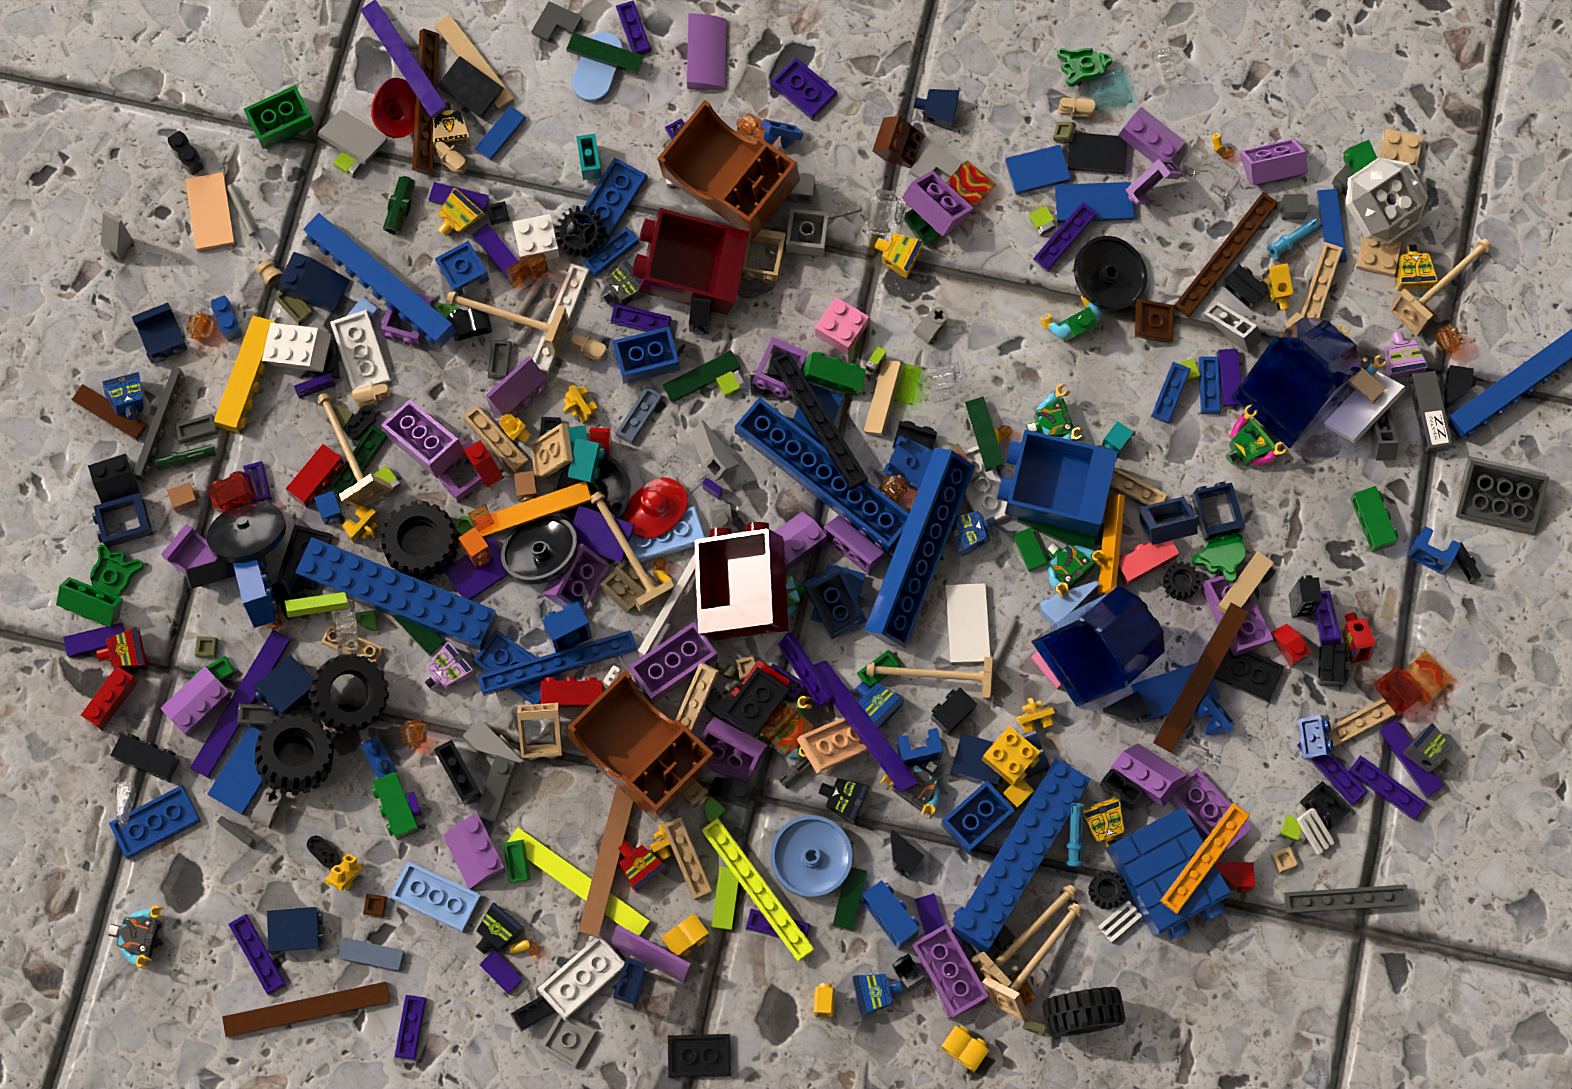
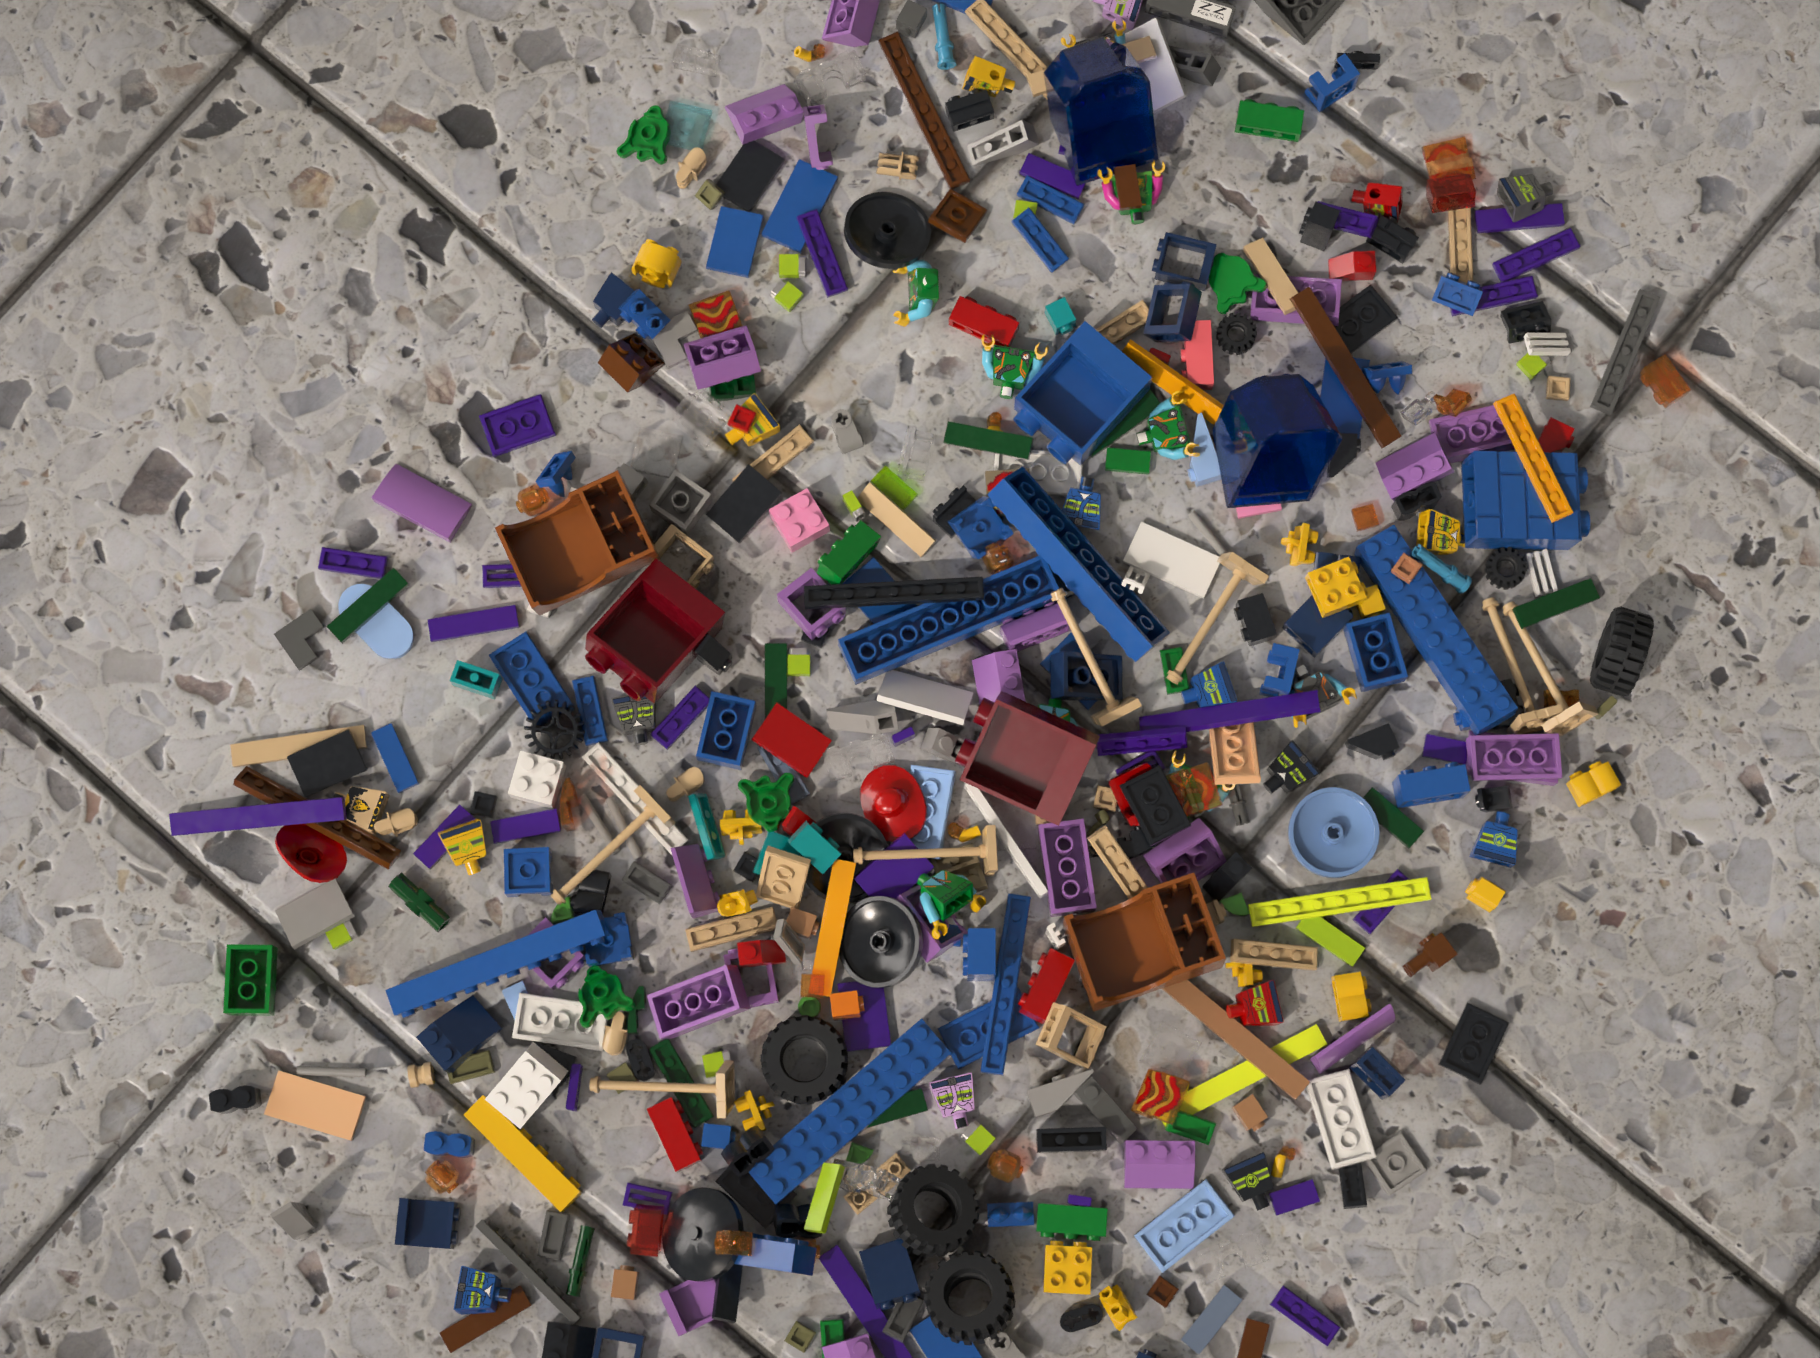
camera: 60 degrees left, 5 degrees up
(246, 552) = (733, 1243): none -> clear orange bracket
(327, 532) = (745, 1152): none -> black brick
(355, 820) = (1067, 1268): none -> yellow brick
(391, 400) = (640, 1005): none -> dark green slope
(393, 369) = (602, 995): none -> green tile
(426, 703) = (977, 1137): none -> lime piece
(439, 360) = (616, 946): none -> blue panel
(504, 481) = (789, 941): none -> light grey tile
(527, 825) = (1160, 1096): none -> slope
(550, 903) = (1250, 1113): none -> medium nougat brick
(562, 380) = (706, 826): none -> teal tile
(601, 579) = (944, 896): none -> torso
(608, 411) = (768, 801): none -> green tile
(632, 134) = (473, 623): none -> dark purple tile
(665, 406) = (791, 740): none -> red tile
(752, 486) = (925, 696): none -> white tile
(754, 981) = (1433, 953): none -> reddish brown brick
(820, 634) = (1114, 708): none -> tan tile
(832, 279) = (744, 503): none -> black tile
(879, 284) = (782, 453): none -> tan tile
(896, 241) = (742, 419): none -> red tile
(934, 604) = (1134, 583): none -> white tile
(938, 129) = (643, 314): none -> blue brick
(984, 120) = (657, 264): none -> yellow brick
(1017, 228) = (786, 295): none -> lime piece
(1057, 804) = (1406, 568): none -> nougat tile
(1078, 382) = (985, 321): none -> red brick
(1087, 757) = (1364, 517): none -> clear orange tile
(1099, 944) = (1556, 603): none -> dark green tile
(1127, 530) = (1164, 357): none -> red tile
(1168, 255) = (893, 164): none -> tan arm
(1221, 780) = (1453, 402): none -> clear orange bracket
(1250, 434) = (1127, 187): none -> reddish brown tile
(1339, 943) = (1664, 381): none -> clear orange brick

